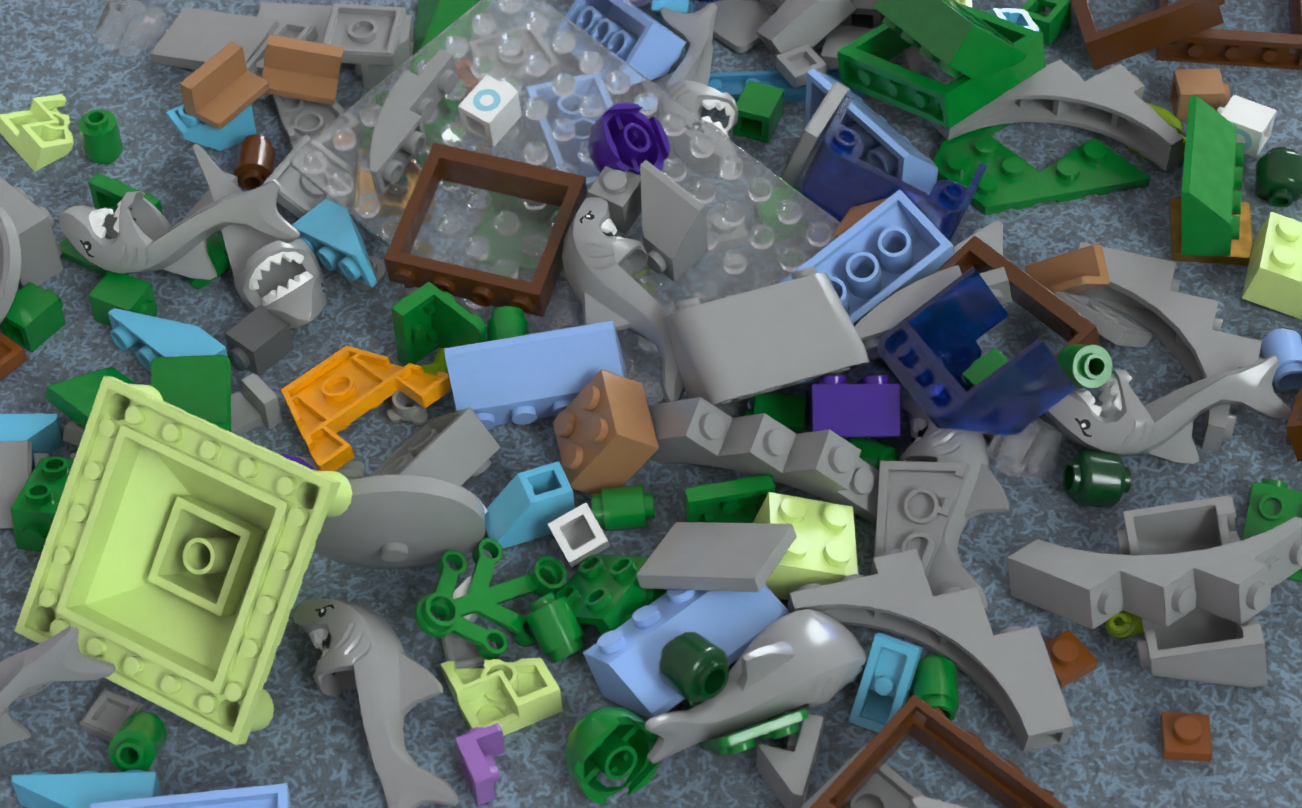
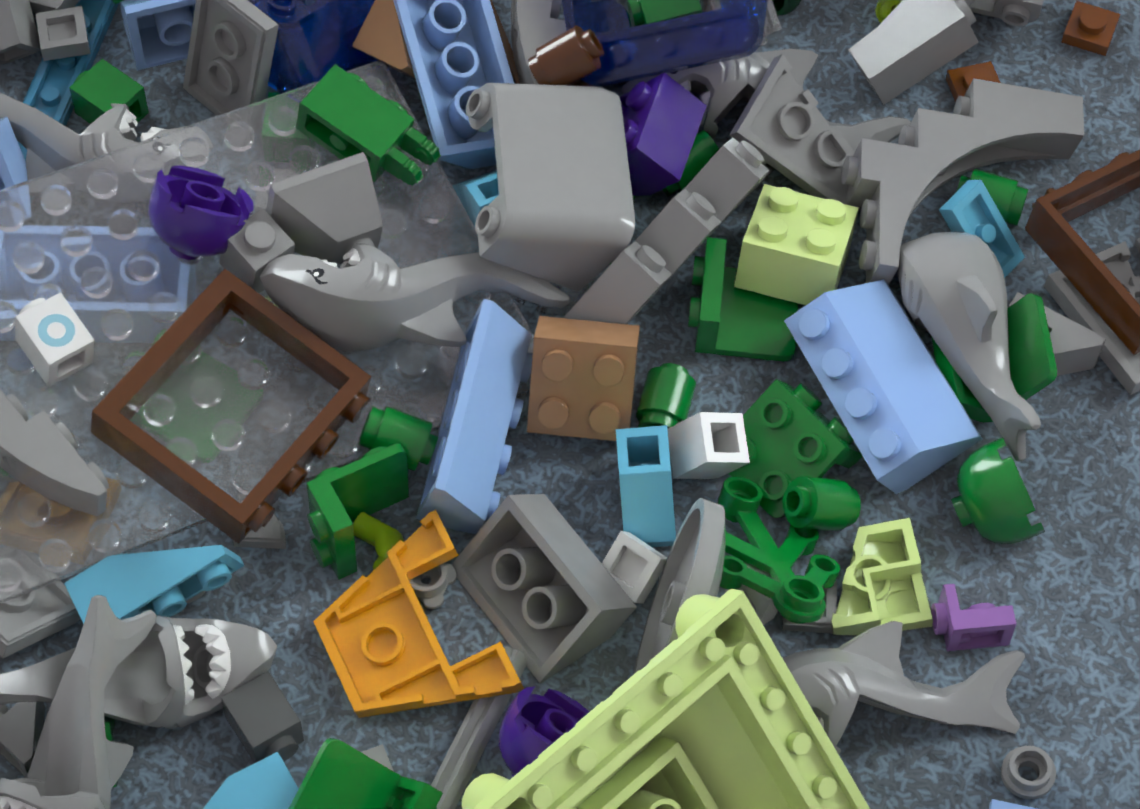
camera: 75 degrees left, 10 degrees up
(262, 399) = (368, 731): light grey tile -> none
(694, 667) = (960, 370): dark green head -> none
(716, 556) = (816, 312): light grey tile -> none
(765, 225) = (355, 119): none -> green hinge
(879, 317) = (567, 57): none -> reddish brown brick

